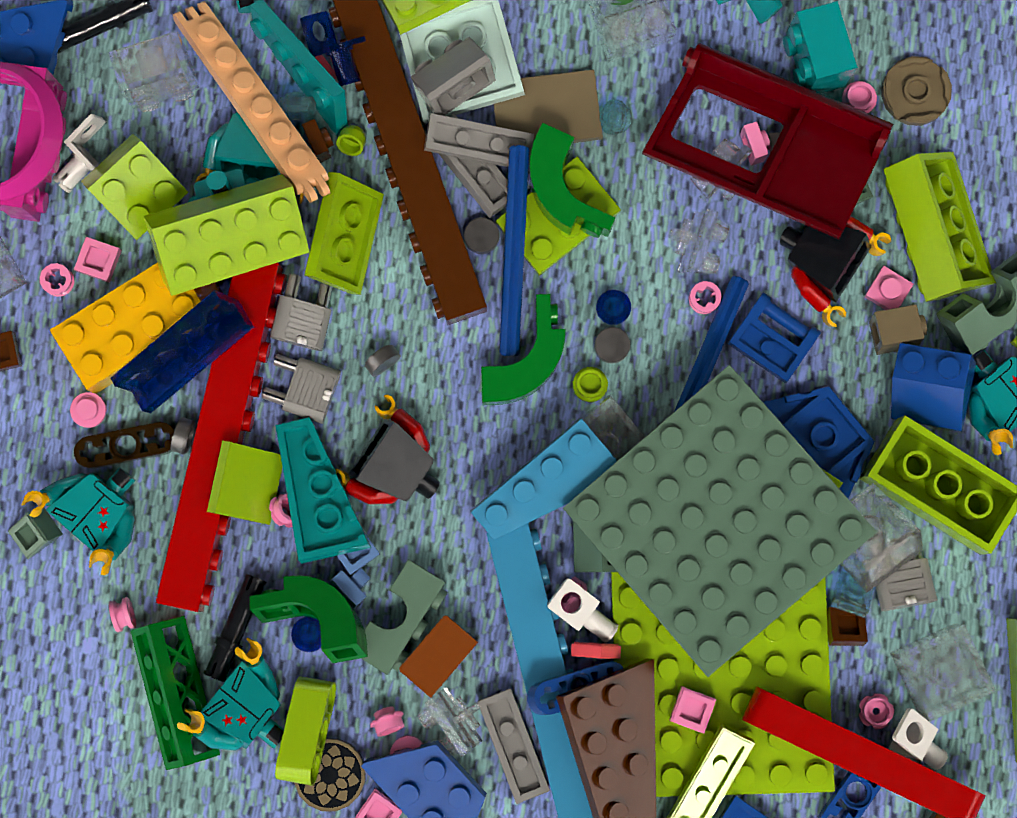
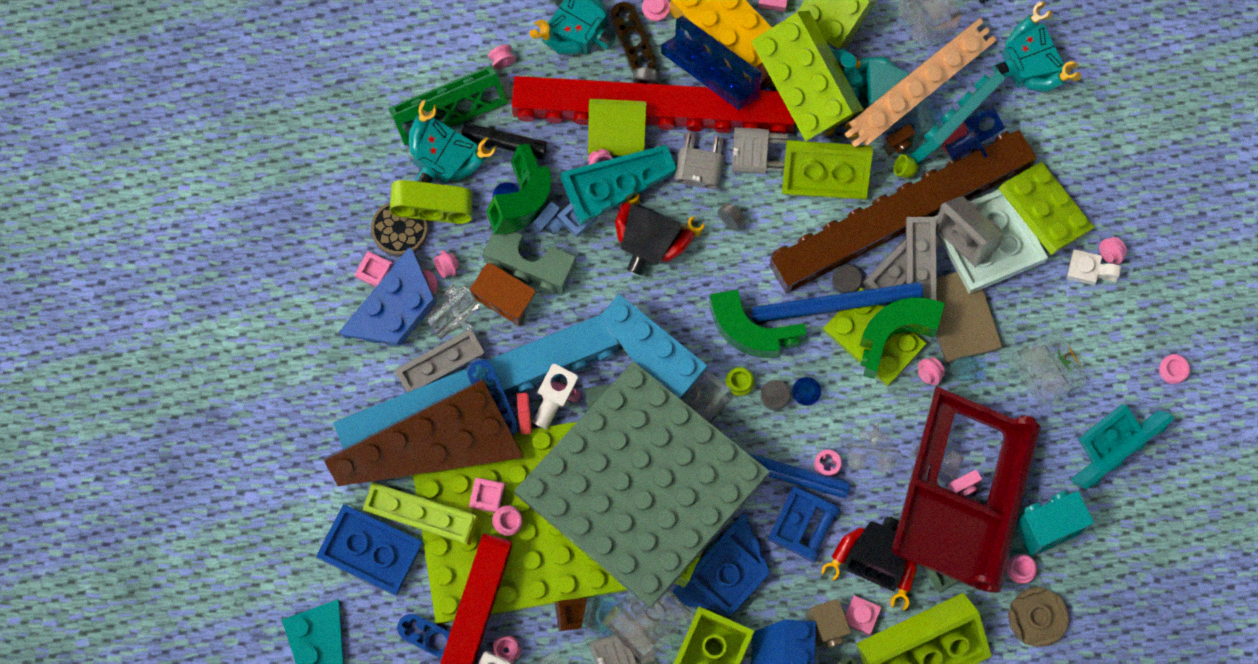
camera: 85 degrees right, 10 degrees down
(611, 157) = (931, 370): none -> bright pink plate
(728, 689) = (507, 520): none -> bright pink plate

